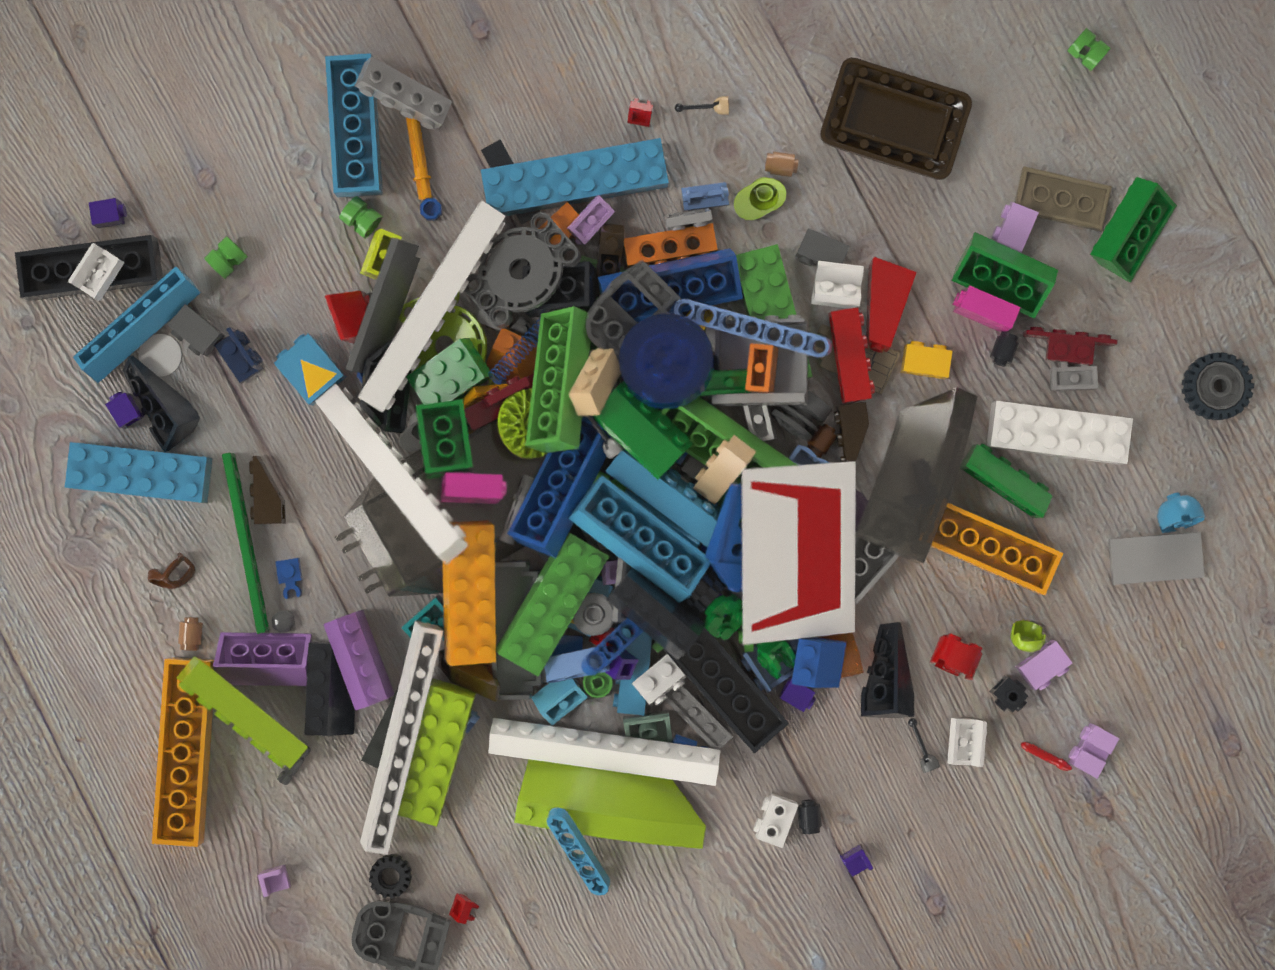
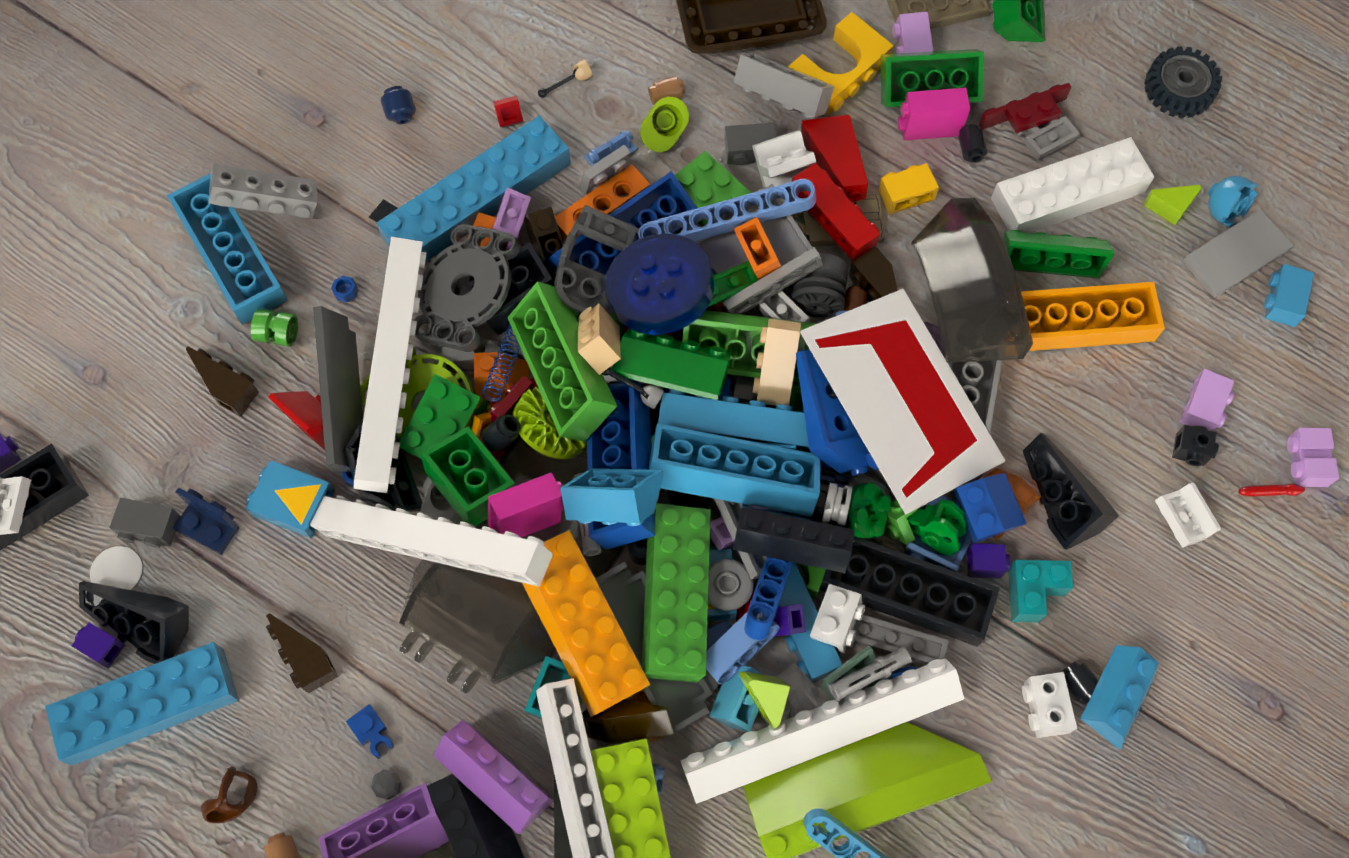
camera: 25 degrees left, 20 degrees down
(136, 324) = (73, 547): dark azure brick -> none
(225, 257) = (146, 433): bright green wheel -> none
(245, 542) = (303, 719): green tile -> none
(300, 246) = (228, 388): none -> dark brown slope
(377, 252) = (307, 351): neon yellow brick -> none
(419, 159) = (319, 263): light orange axle -> none
(484, 416) = (501, 432): none -> black brick
(537, 517) = (612, 496): none -> dark azure slope
(552, 59) = (398, 104): none -> dark blue head
(577, 709) = (768, 694): none -> lime slope
(598, 685) = (773, 657): bright green wheel -> none
(658, 733) = (897, 658): none -> light grey pin
(697, 606) = (837, 504): none -> light grey wheel
(819, 727) = (1031, 583): none -> teal brick
(828, 841) = (1120, 693): none -> dark azure slope
(856, 860) = (1161, 702): dark purple panel -> none
(877, 215) = (783, 85): none -> light grey brick
(915, 236) = (865, 47): none -> yellow arch
(928, 762) = (1162, 558): hinge -> none
(956, 657) = (1120, 434): red brick -> none
(1027, 636) = (1173, 383): lime hair -> none
(1132, 489) = (1171, 202): none -> lime slope
(1168, 615) = (1288, 295): none -> dark azure brick

